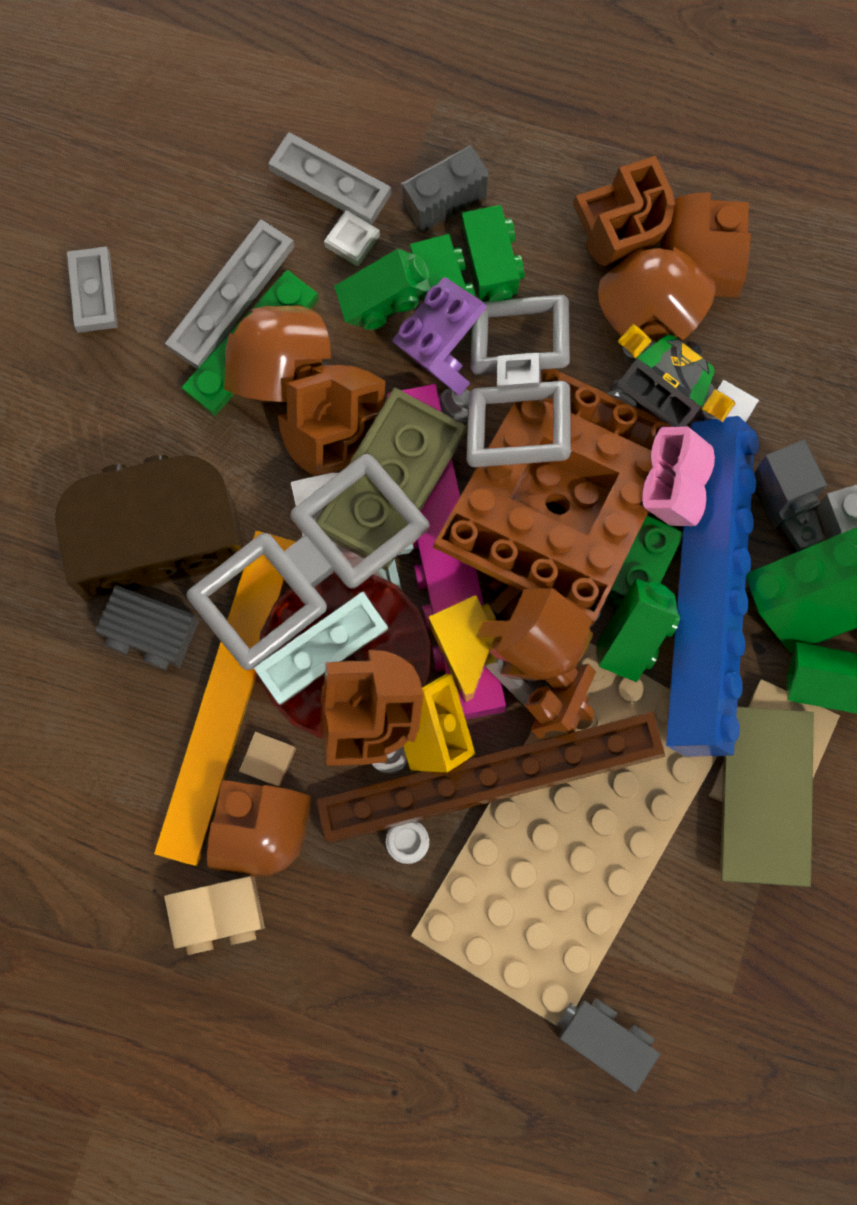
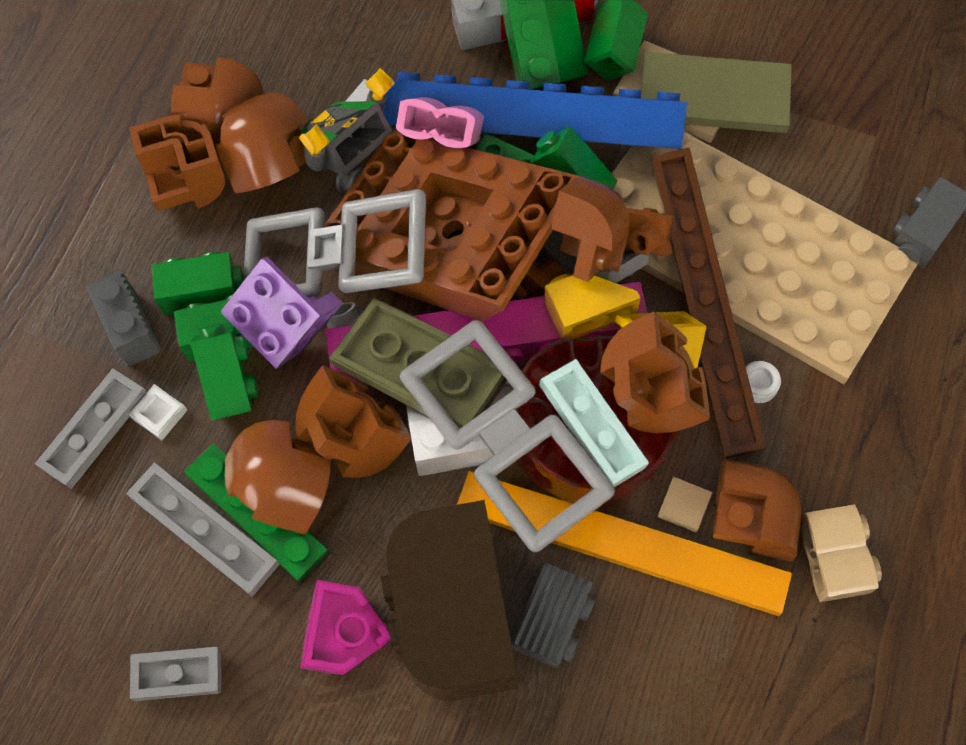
camera: 85 degrees left, 10 degrees down
(133, 428) = (340, 629): none -> dark pink plate
(789, 491) = (451, 49): dark grey hinge -> none

